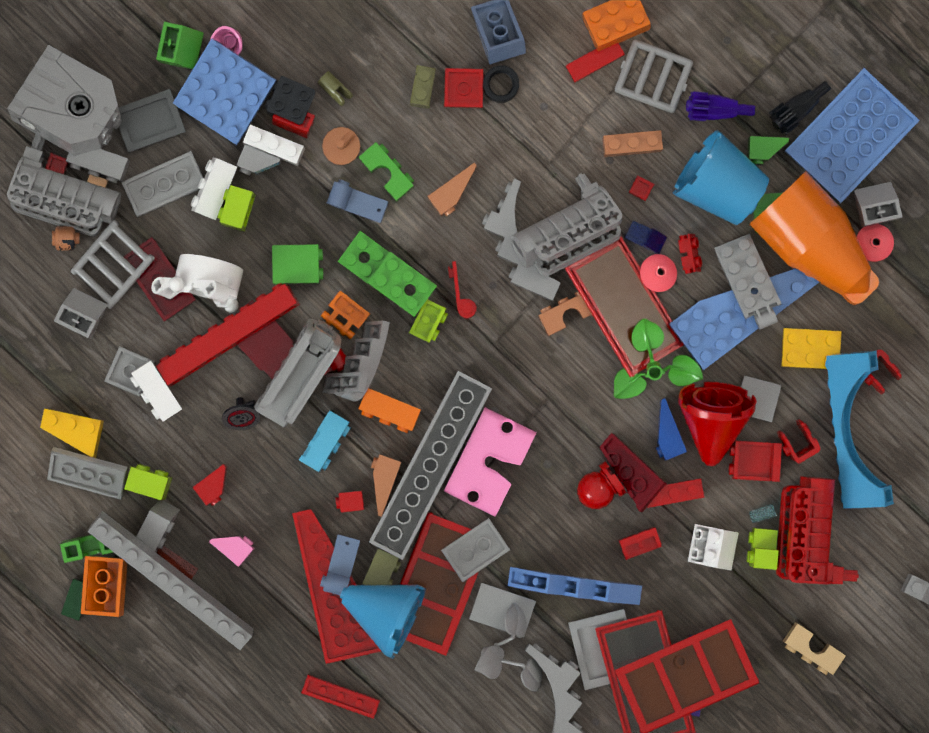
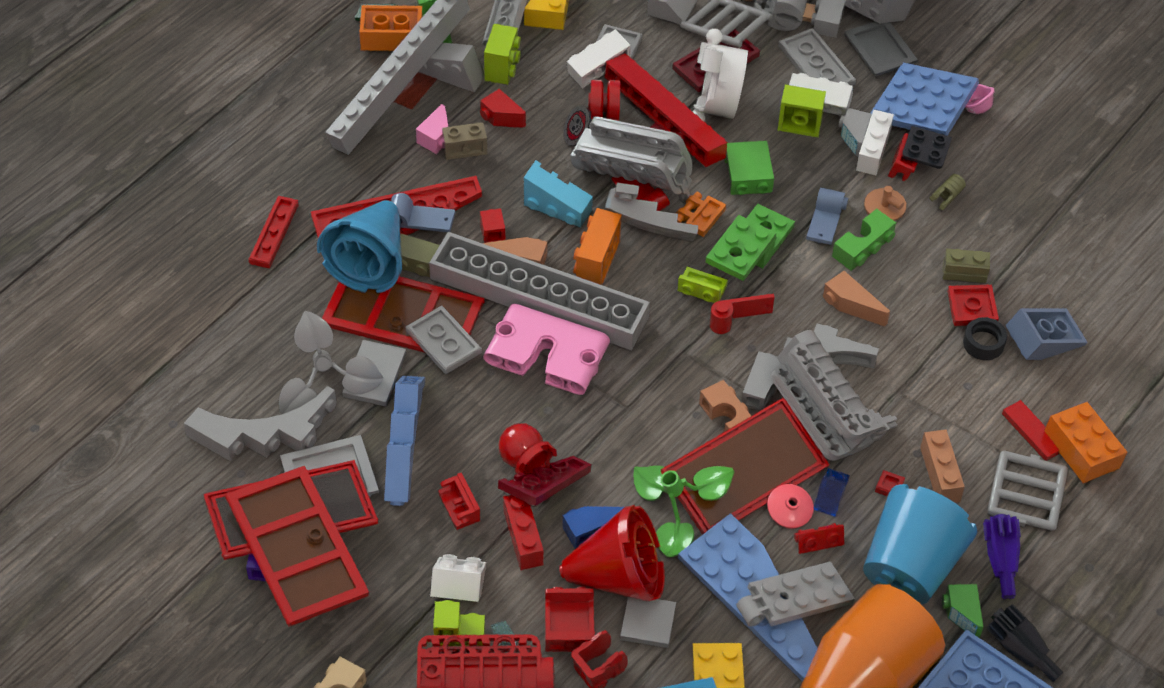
camera: 90 degrees right, 35 degrees down
(179, 46) = (965, 56): bright green slope -> none
(217, 389) = (605, 102): none -> red wheel
(249, 522) = (465, 141): none -> dark tan bracket

